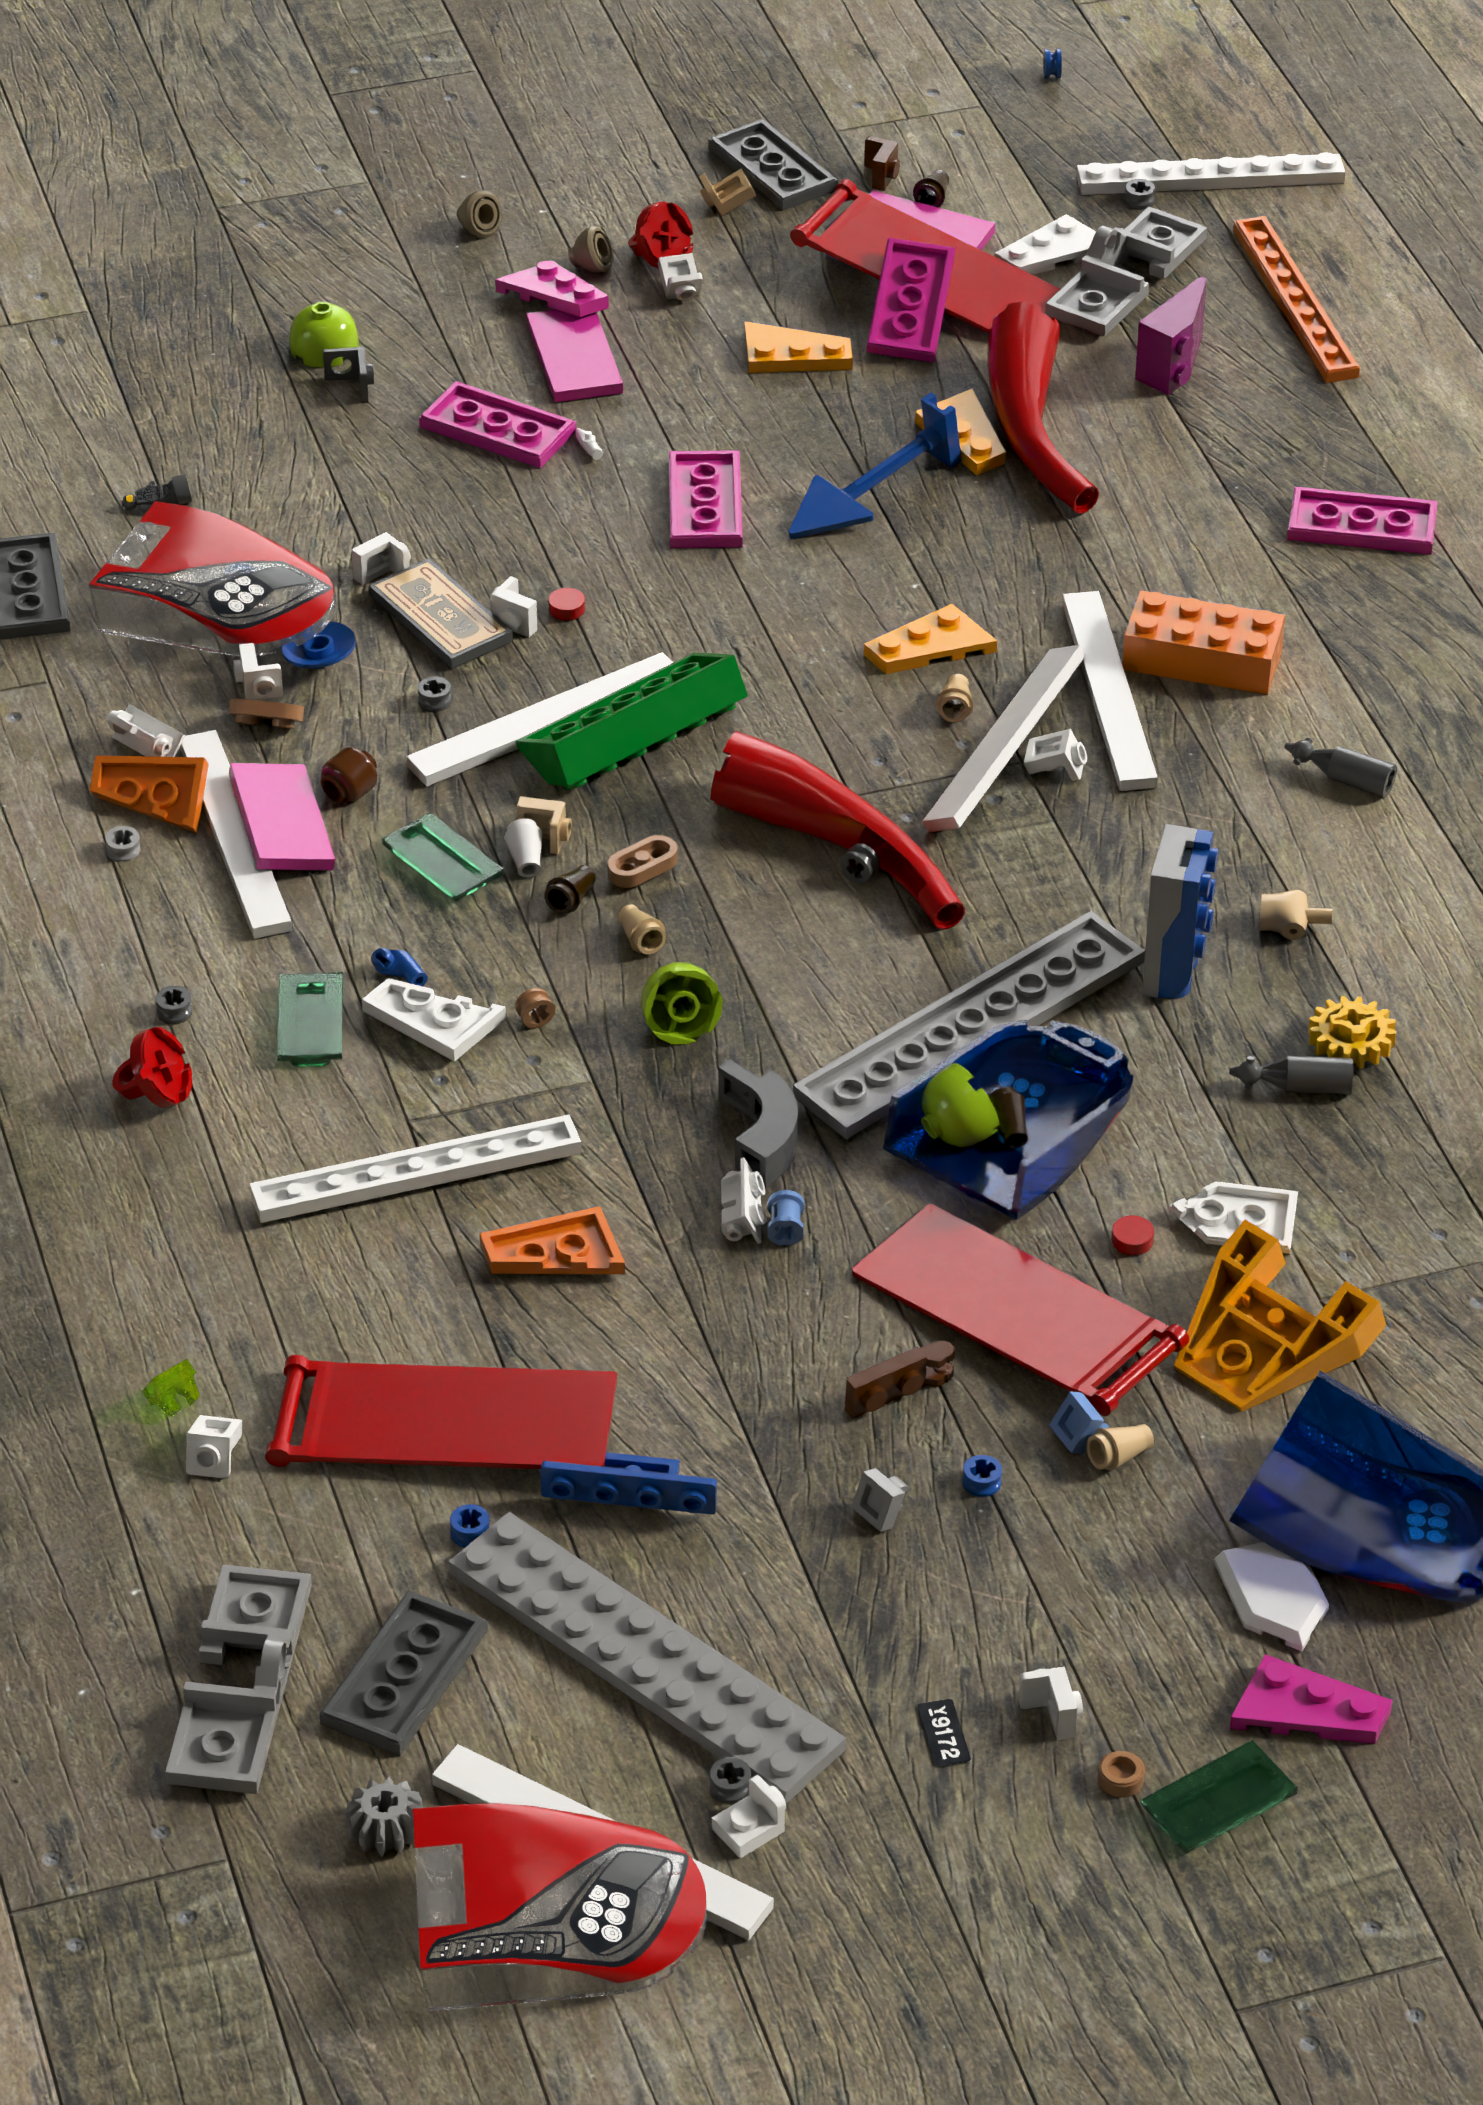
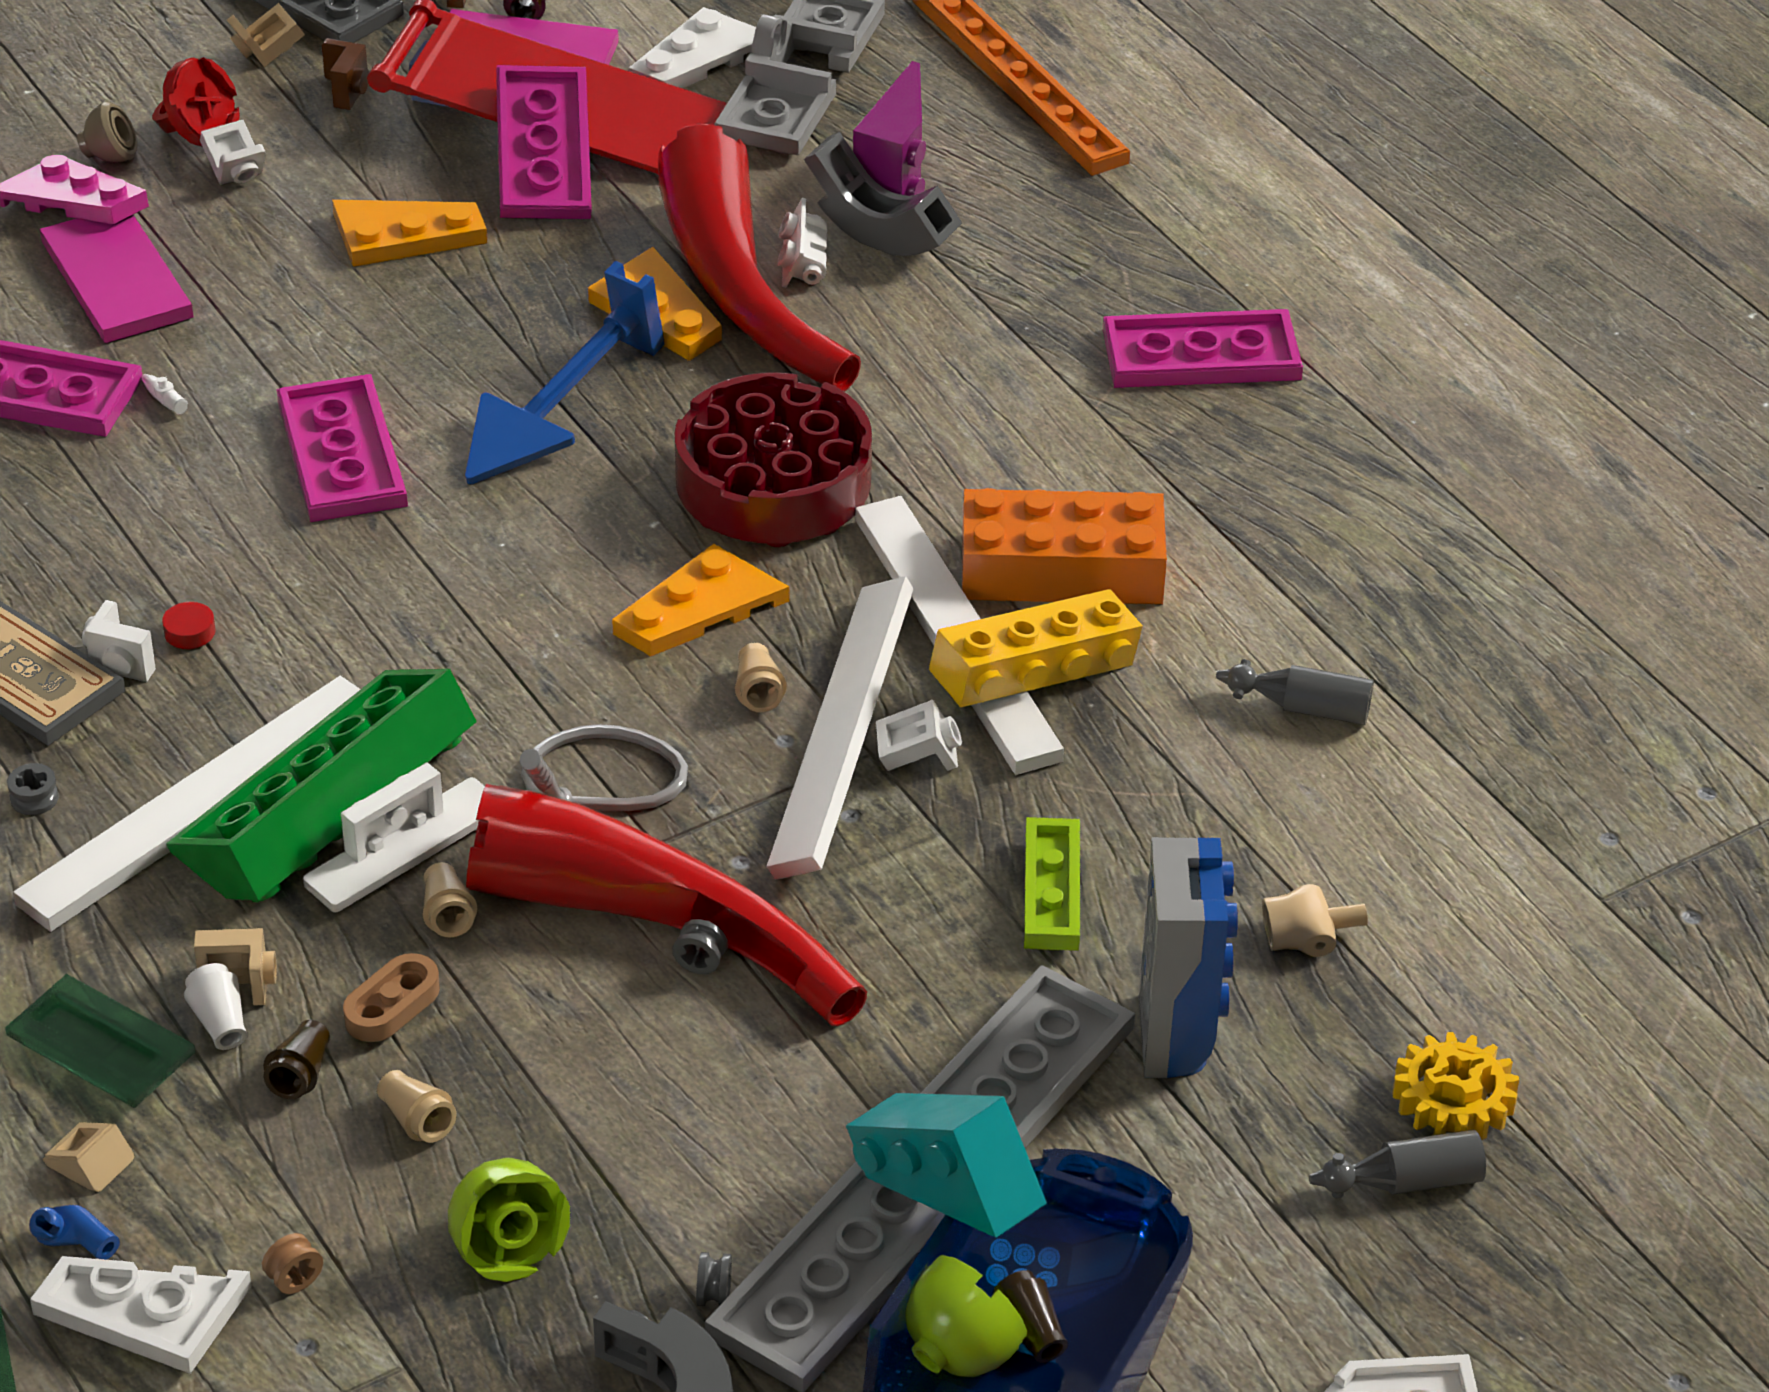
camera: 15 degrees left, 0 degrees up
(421, 925) = (91, 1155): none -> tan slope
(668, 759) = (394, 833): none -> white bracket
(696, 809) = (447, 903): none -> tan cone
(778, 225) = (347, 69): none -> reddish brown bracket
(779, 738) = (540, 778): none -> light grey piece
(806, 1061) = (713, 1278): none -> dark grey bush
(979, 1008) = (950, 1156): none -> teal wedge
(1011, 550) = (773, 458): none -> dark red brick
(1085, 404) = (803, 246): none -> white hinge
(1118, 862) = (1052, 884): none -> lime plate
(1144, 386) = (873, 214): none -> dark grey arch
(1157, 706) = (1035, 647): none -> yellow brick

